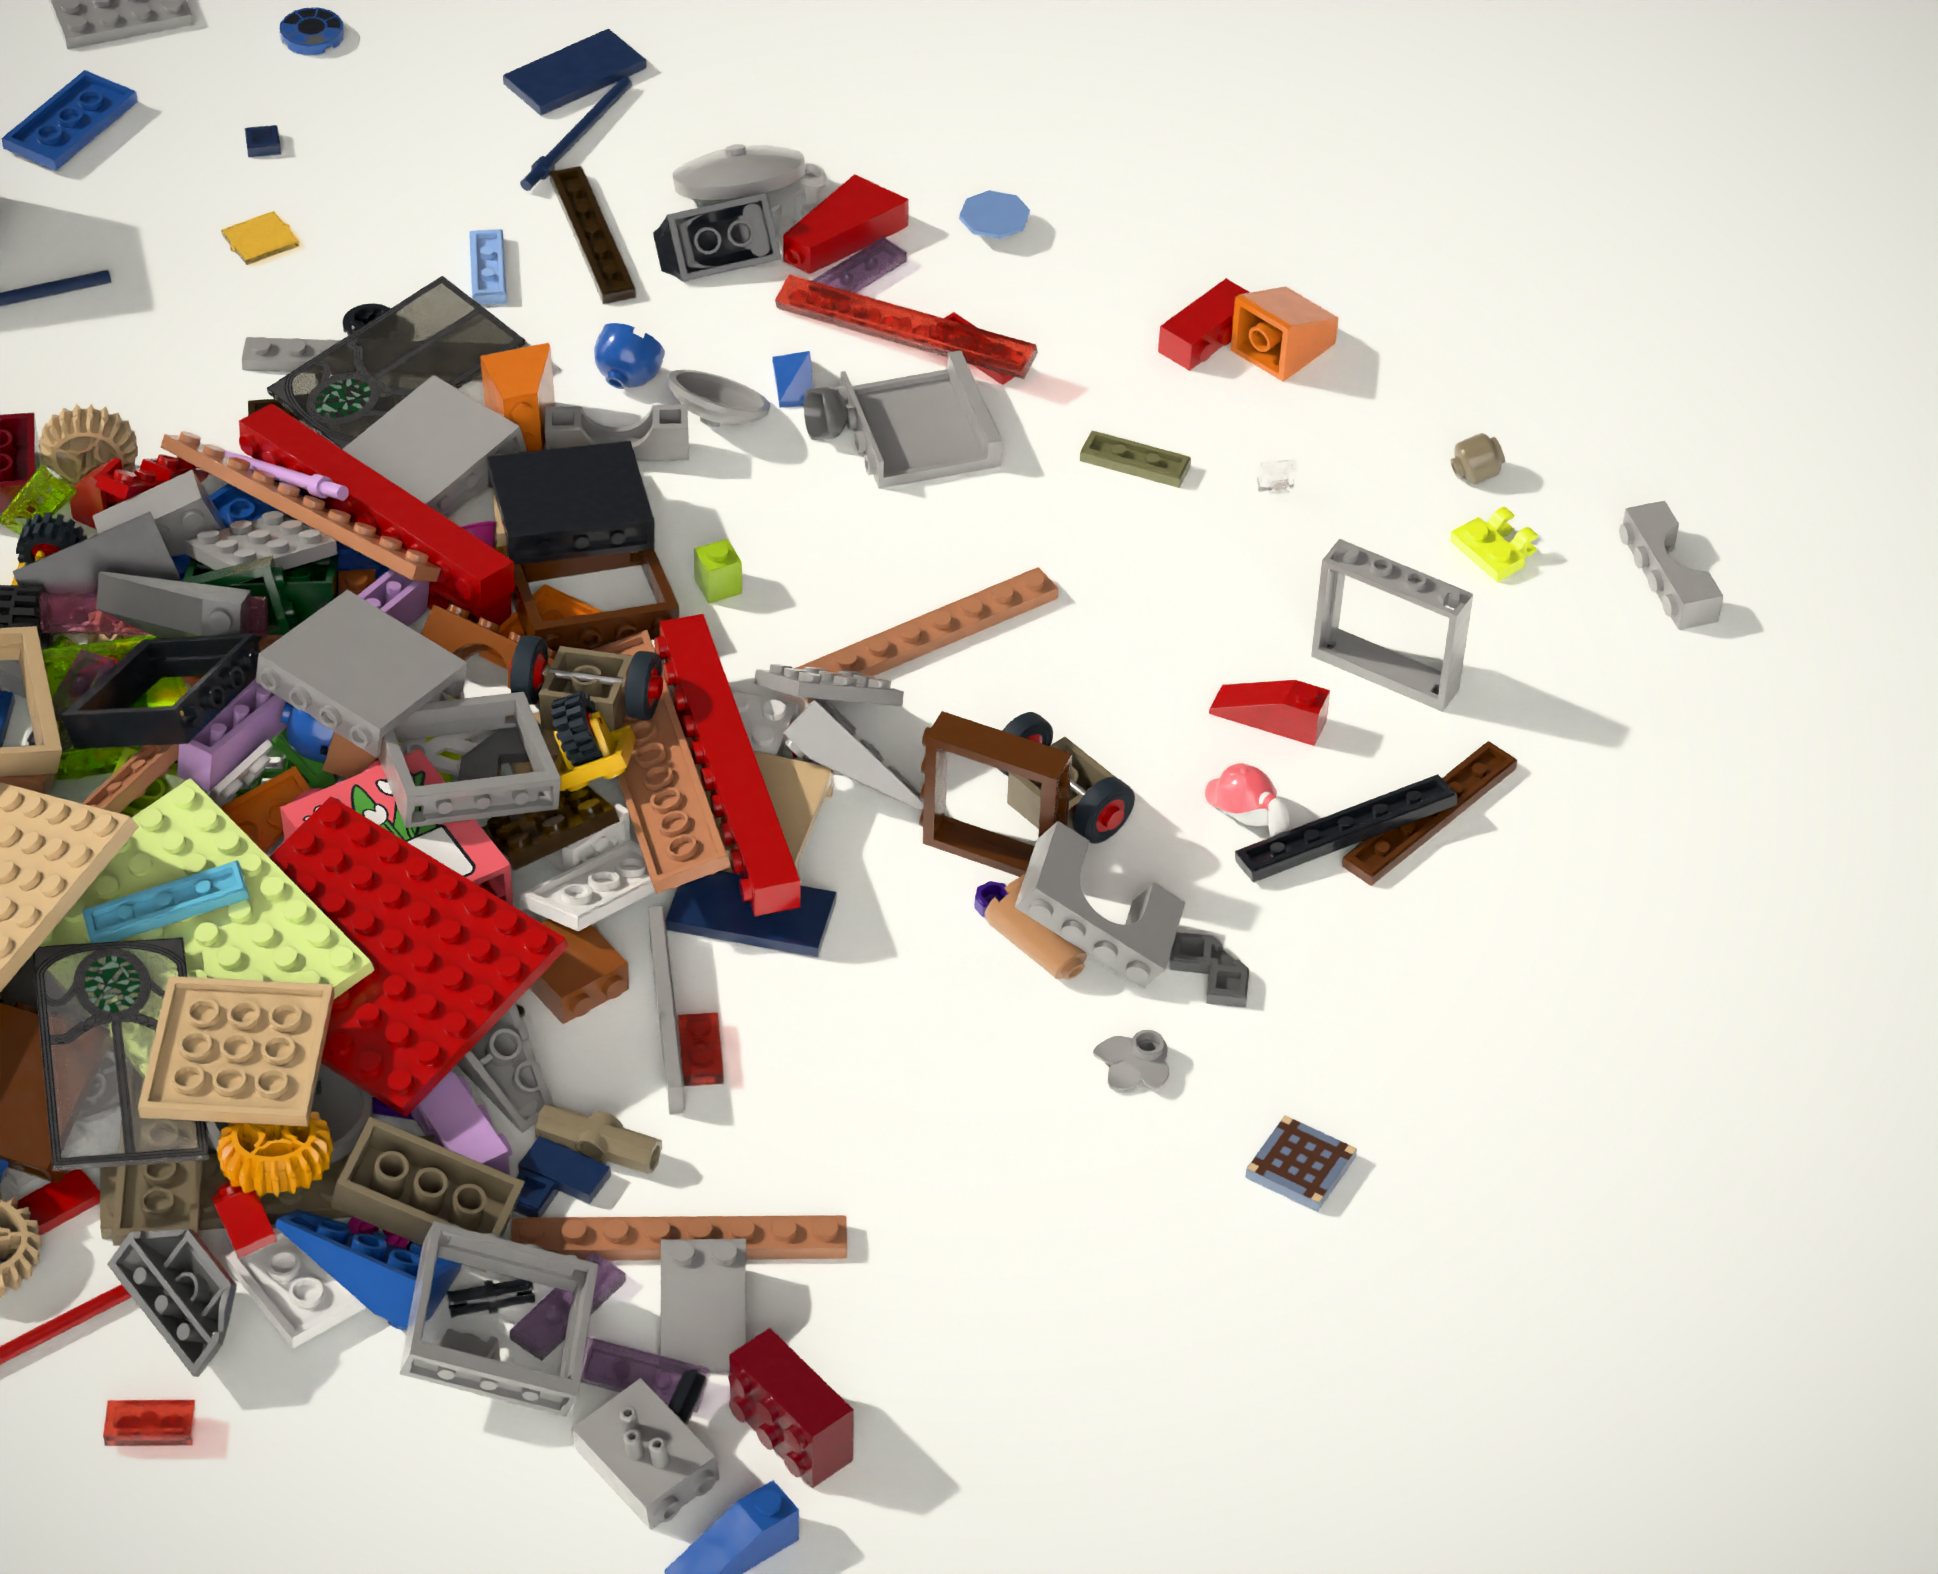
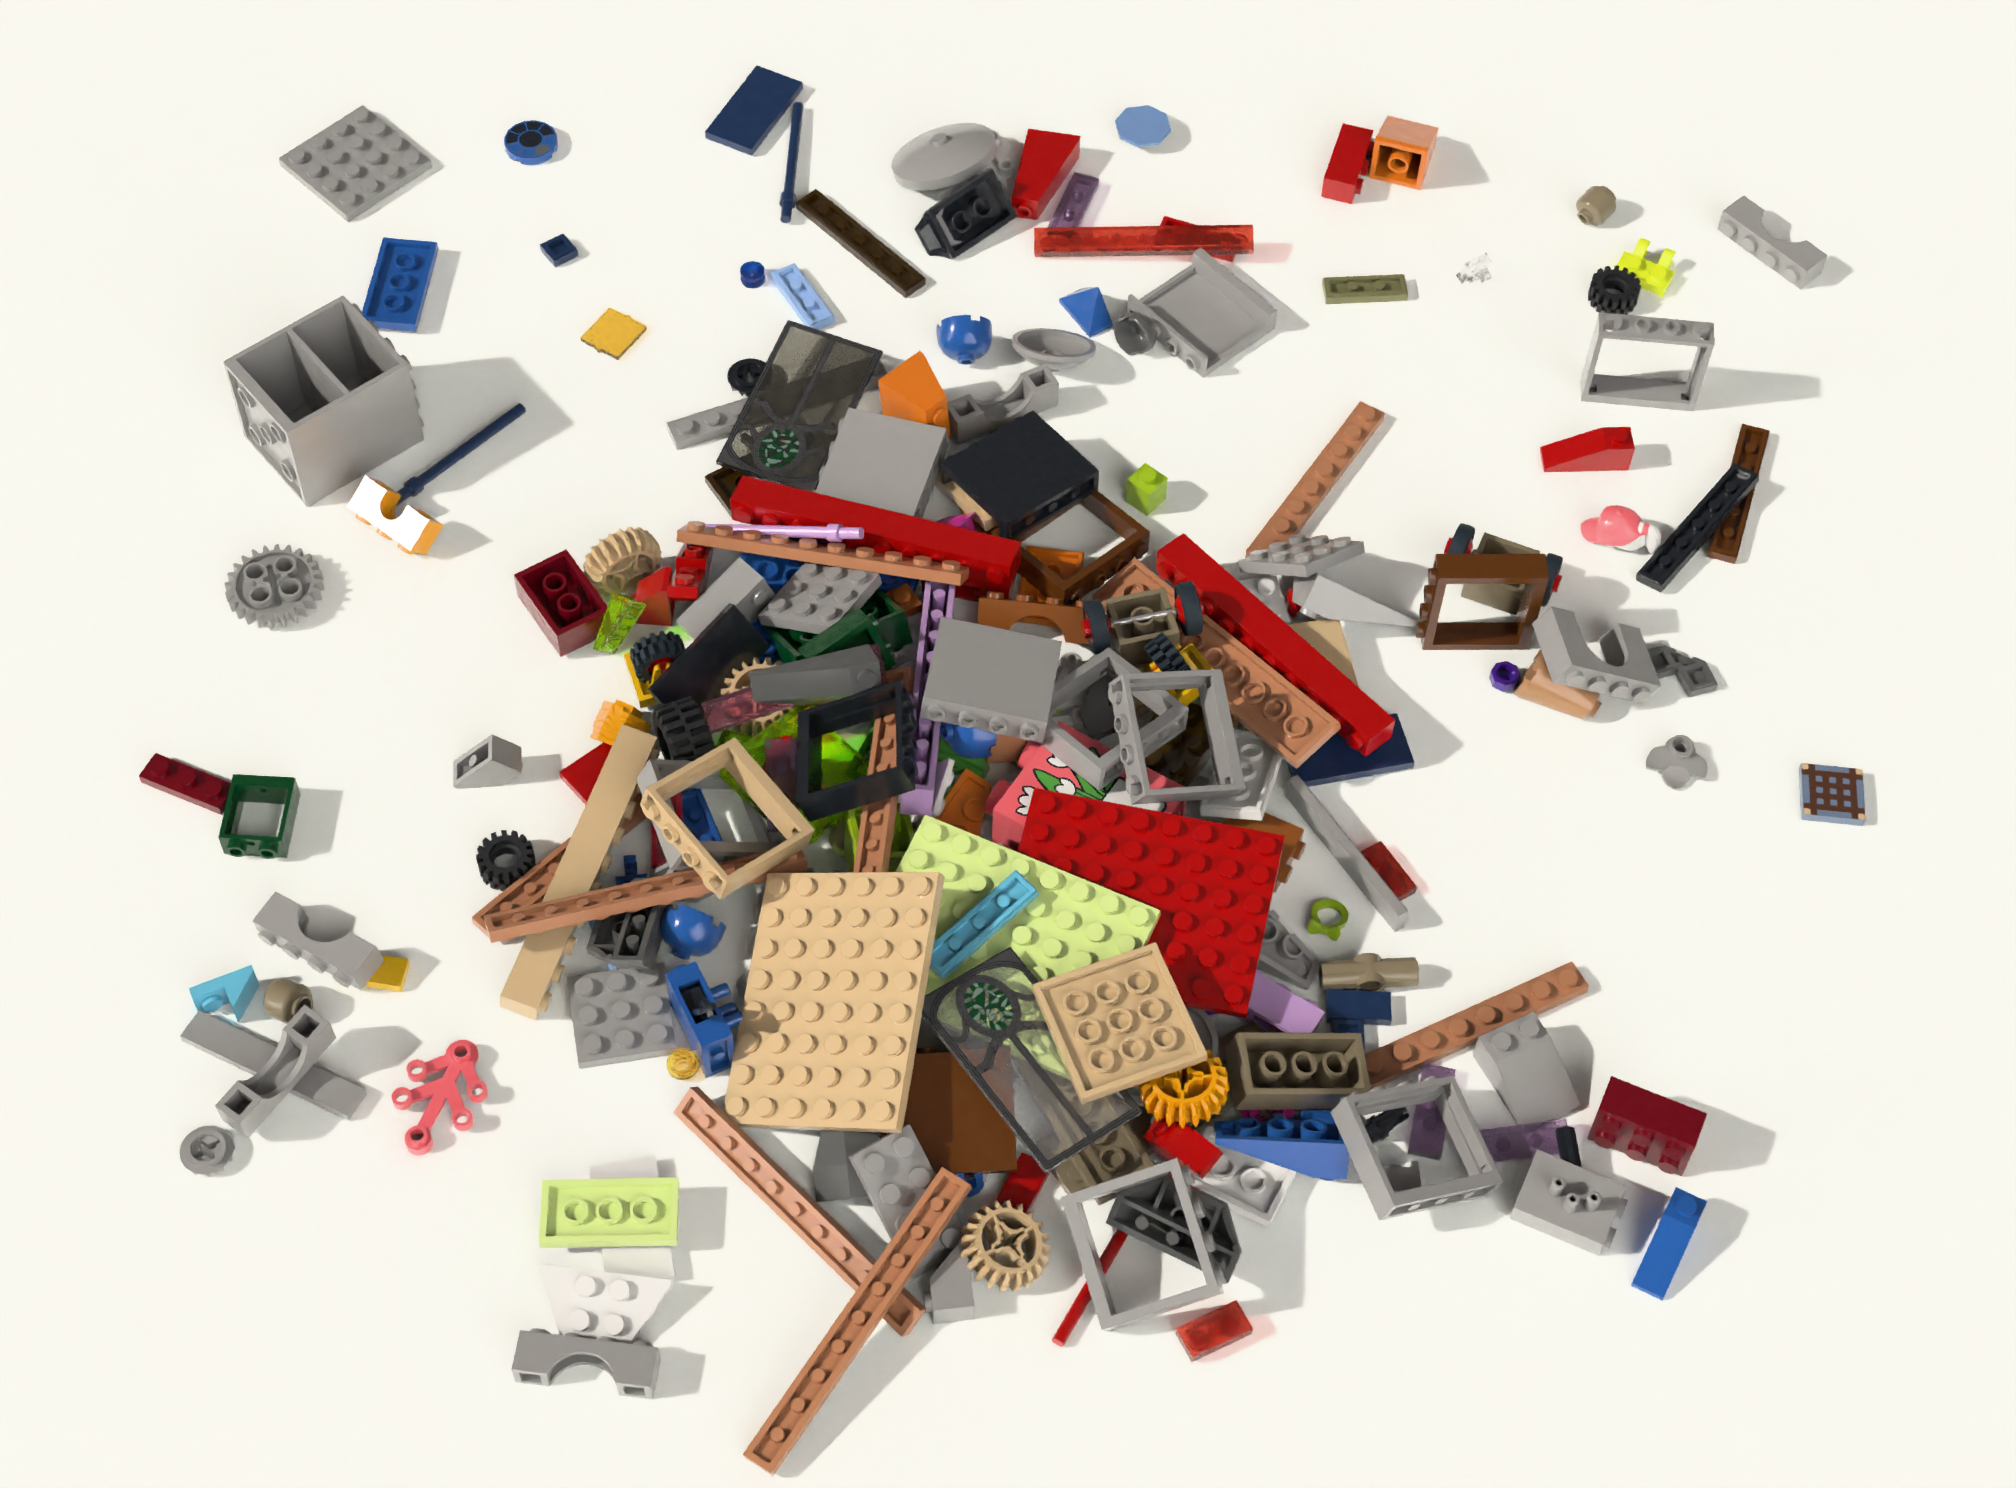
camera: 25 degrees left, 10 degrees up
(61, 1280) = (1091, 1264): none -> light grey window
(449, 227) = (758, 277): none -> clear blue bush
(538, 732) = (1217, 724): none -> light grey window
(578, 1072) = (1333, 931): none -> lime piece
(1438, 540) = (1617, 280): none -> black tyre

